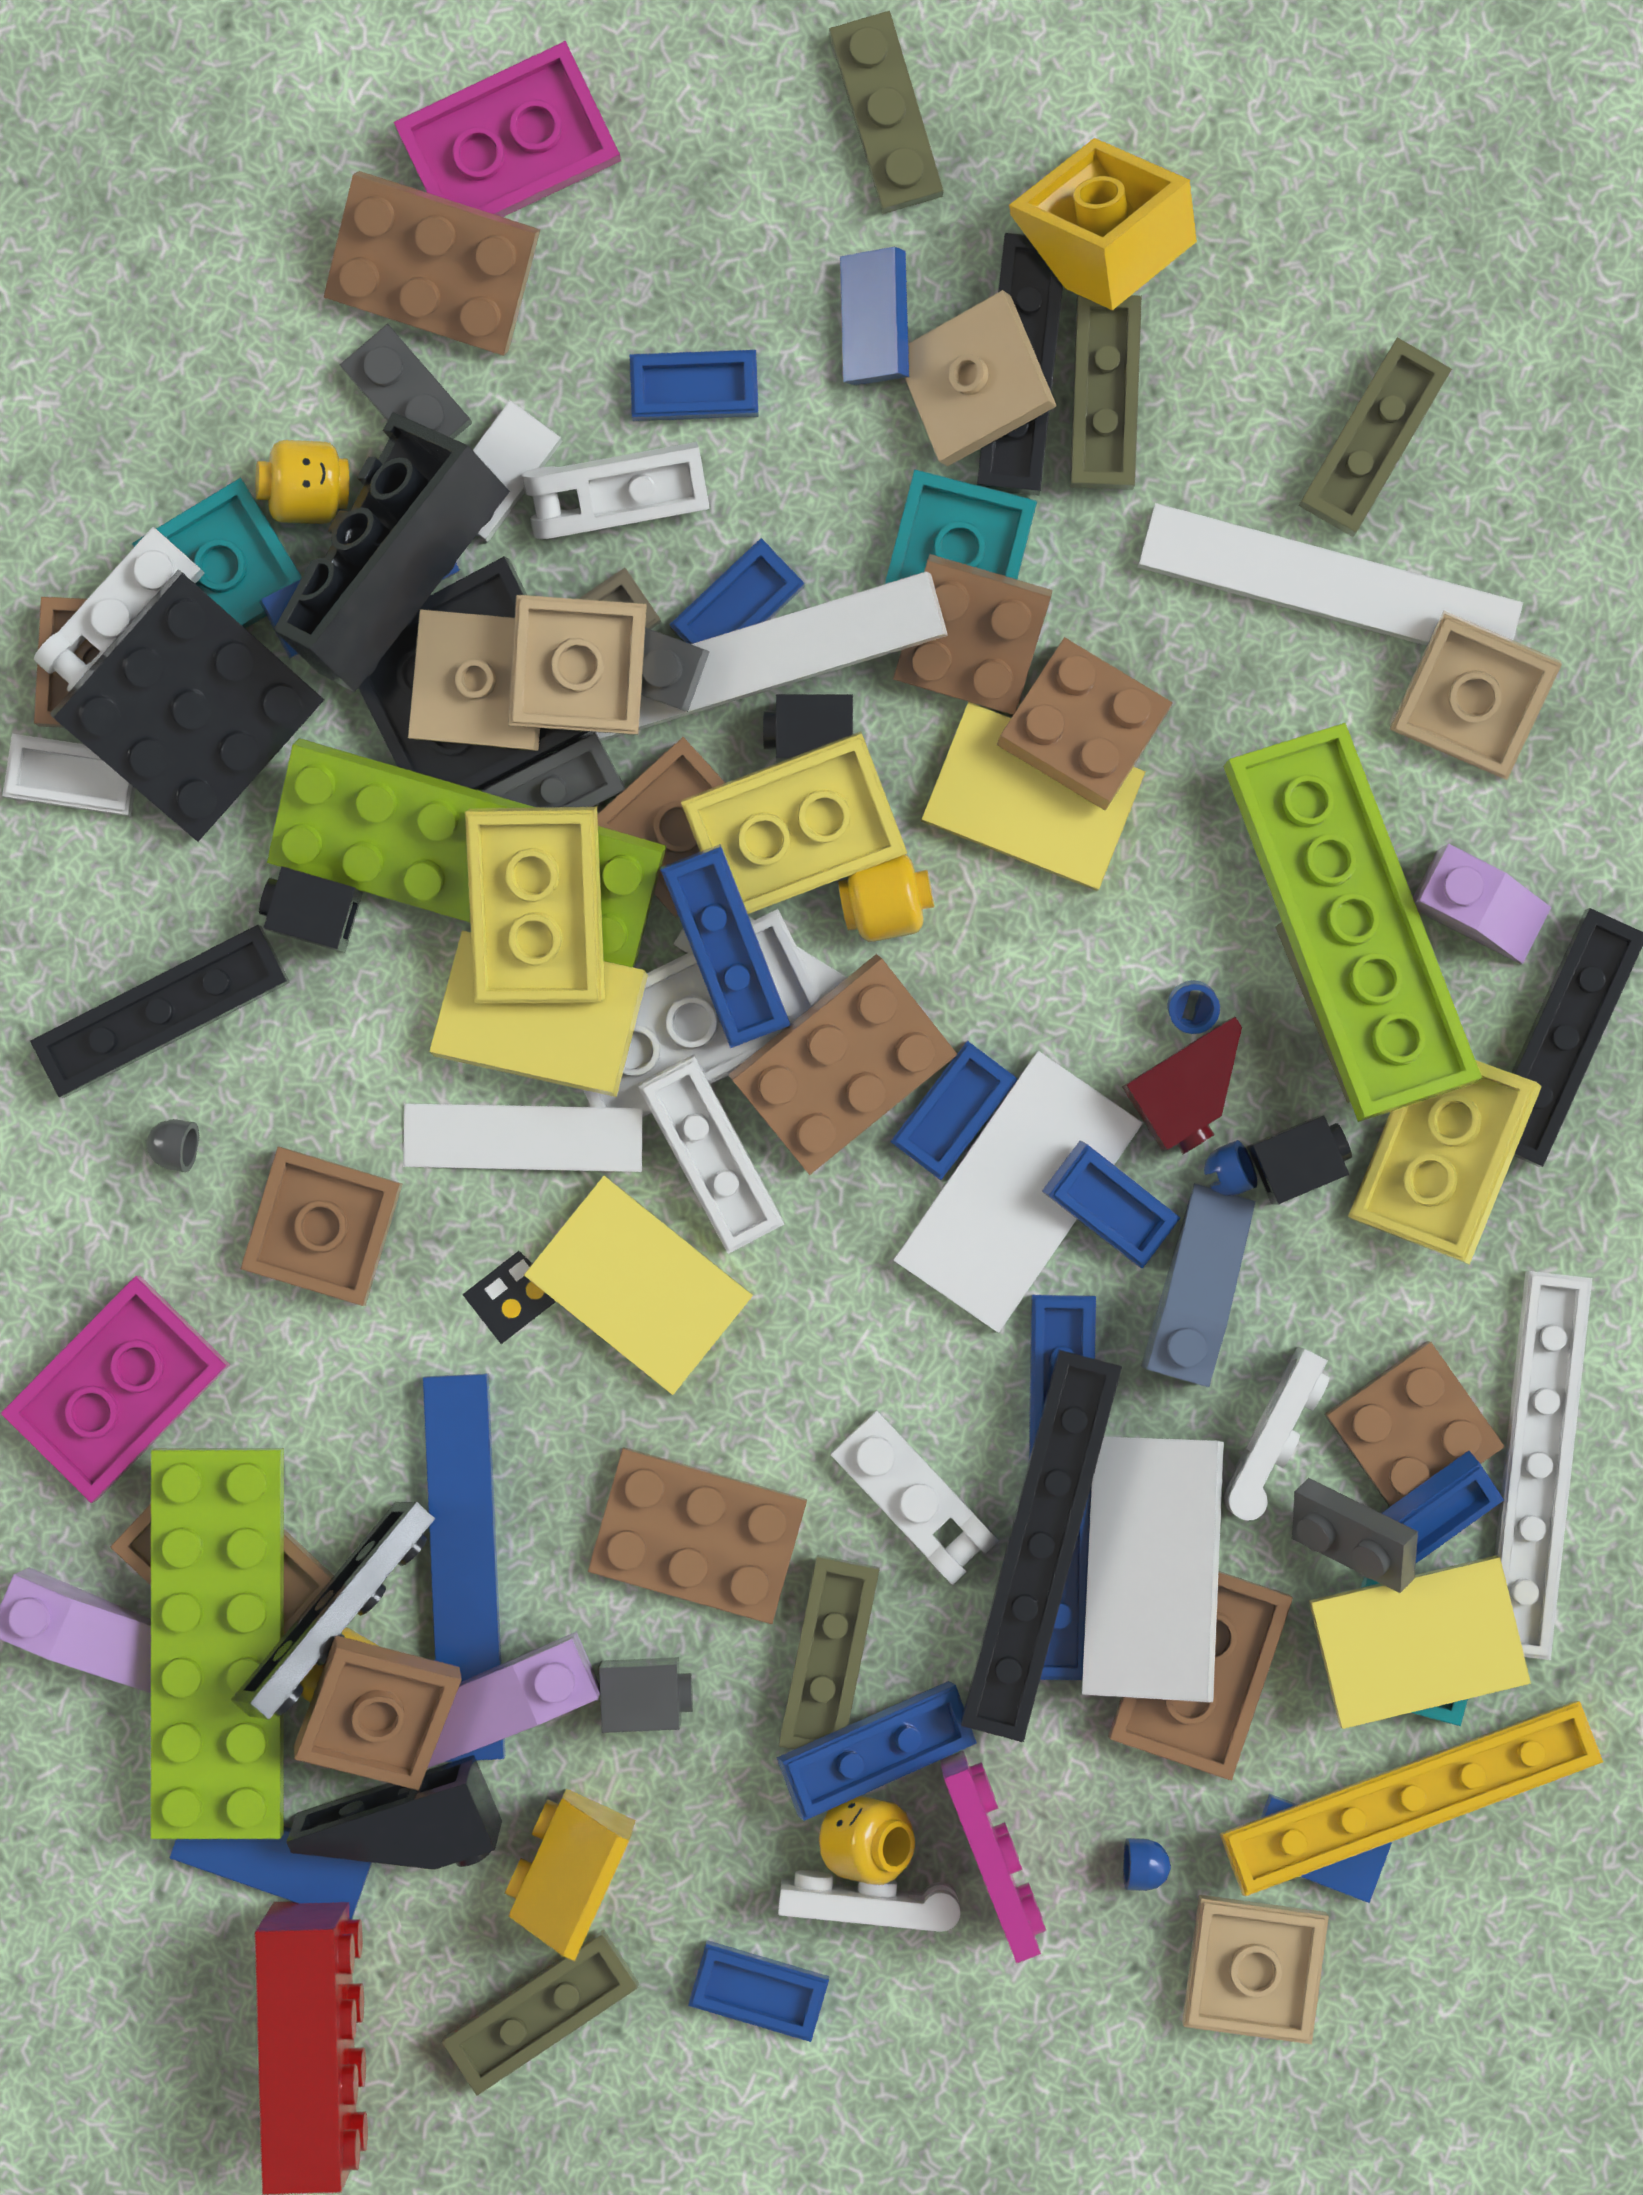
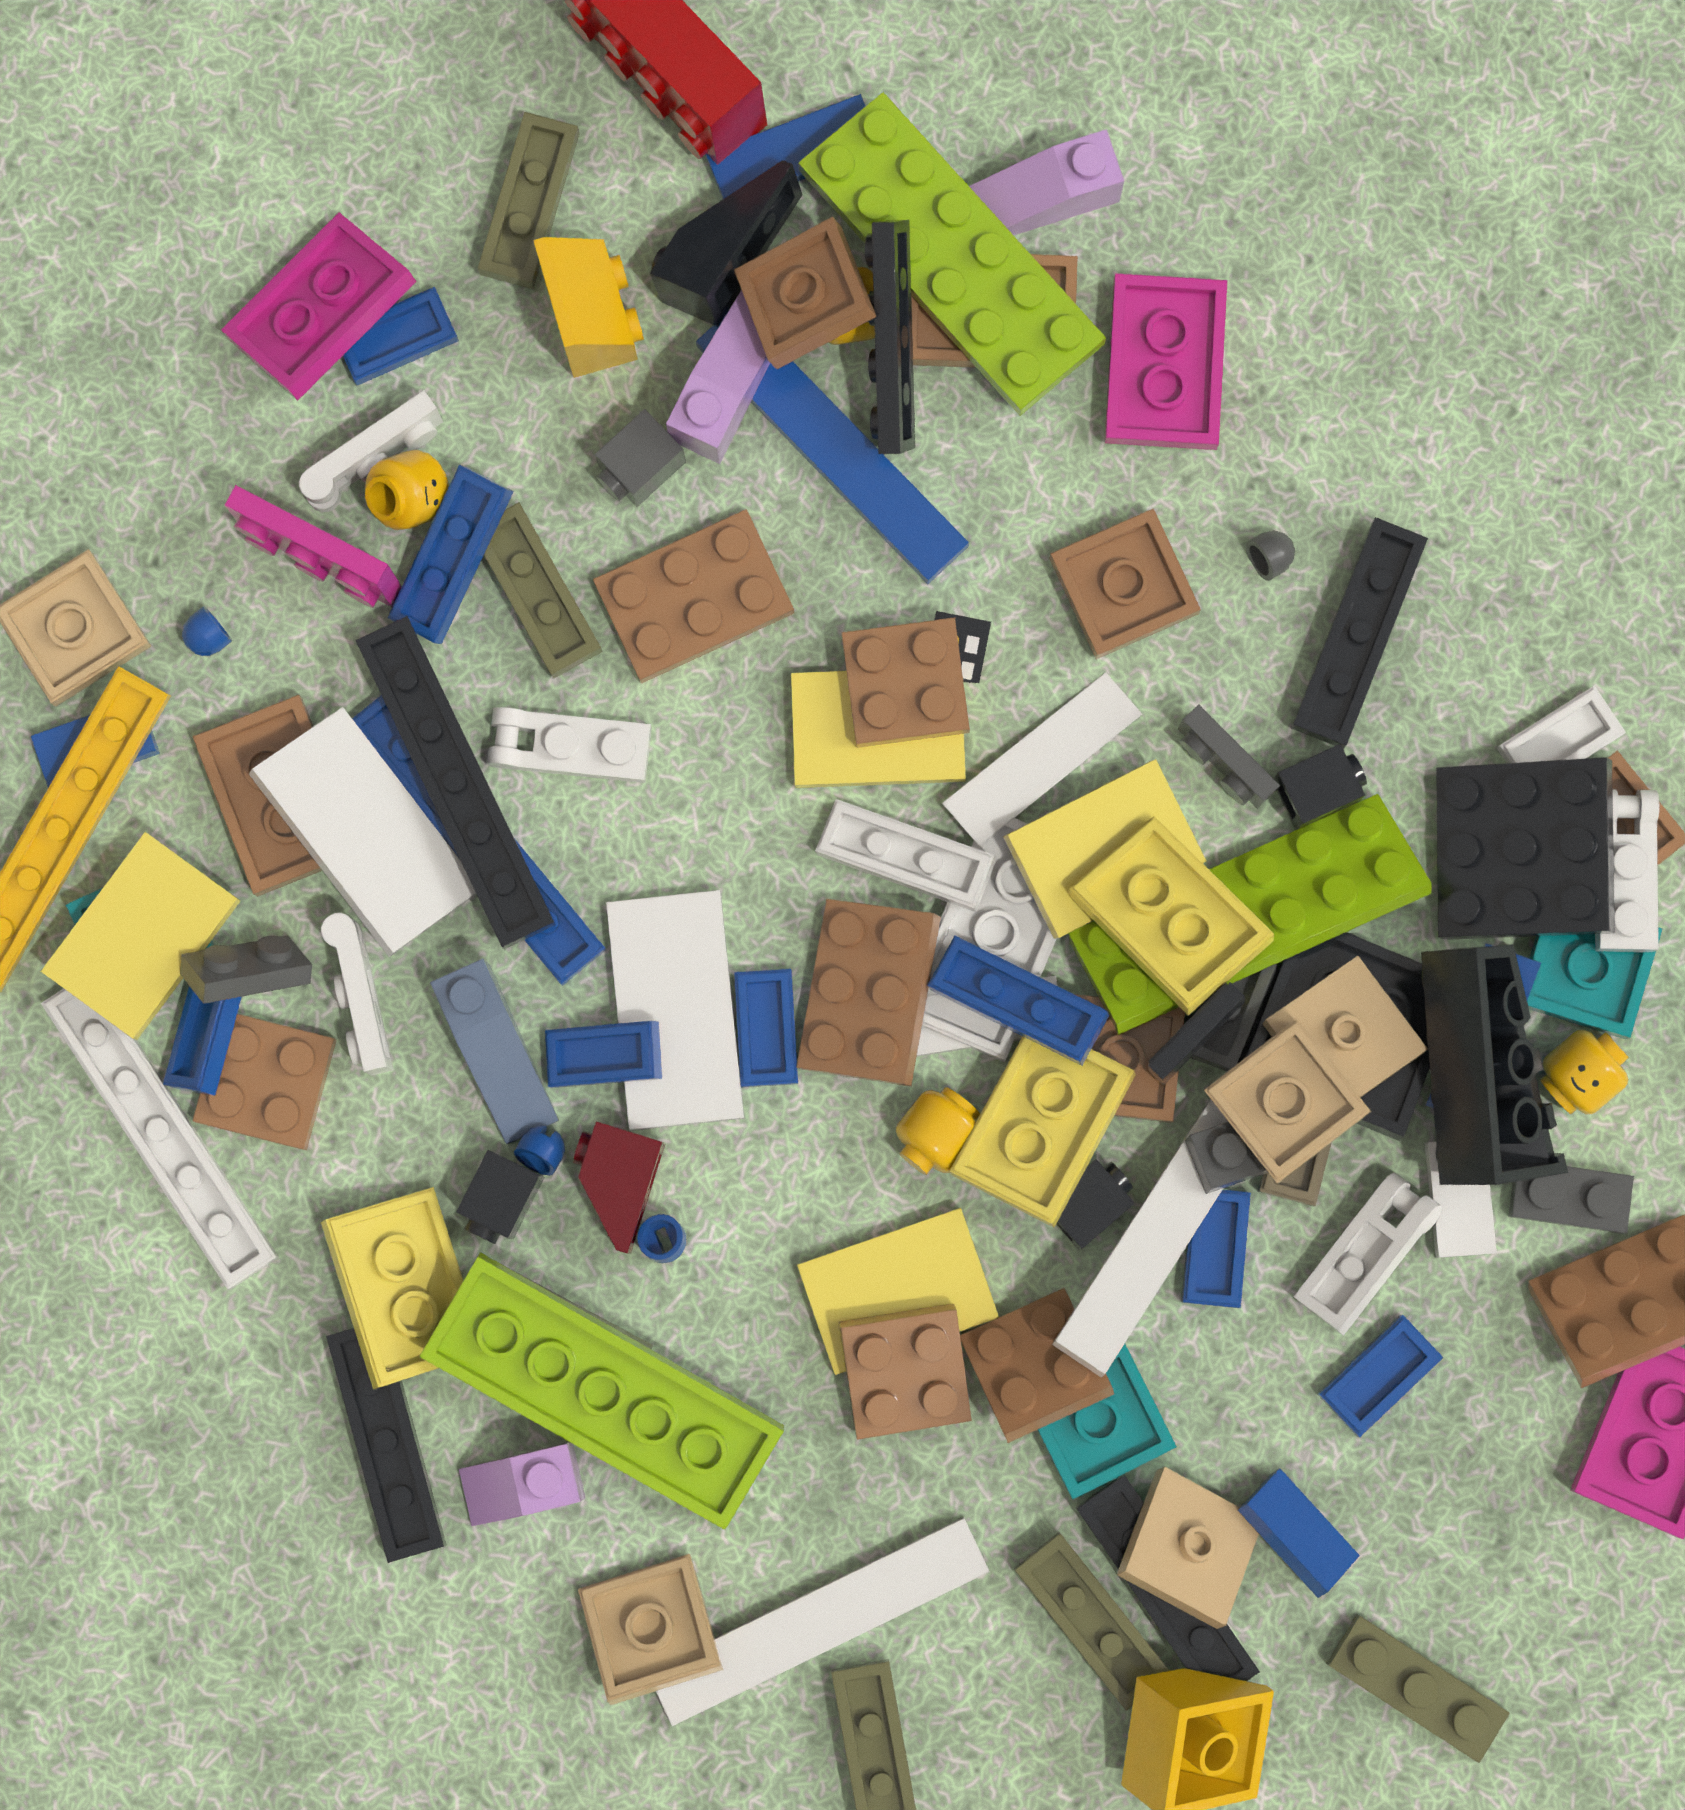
camera: 140 degrees right, 5 degrees down
(370, 1028) = (1209, 741): none -> dark grey plate
(583, 1300) = (905, 682): none -> medium nougat plate
(601, 789) = (1195, 1032): none -> black tile
(804, 2073) = (318, 305): none -> dark pink plate

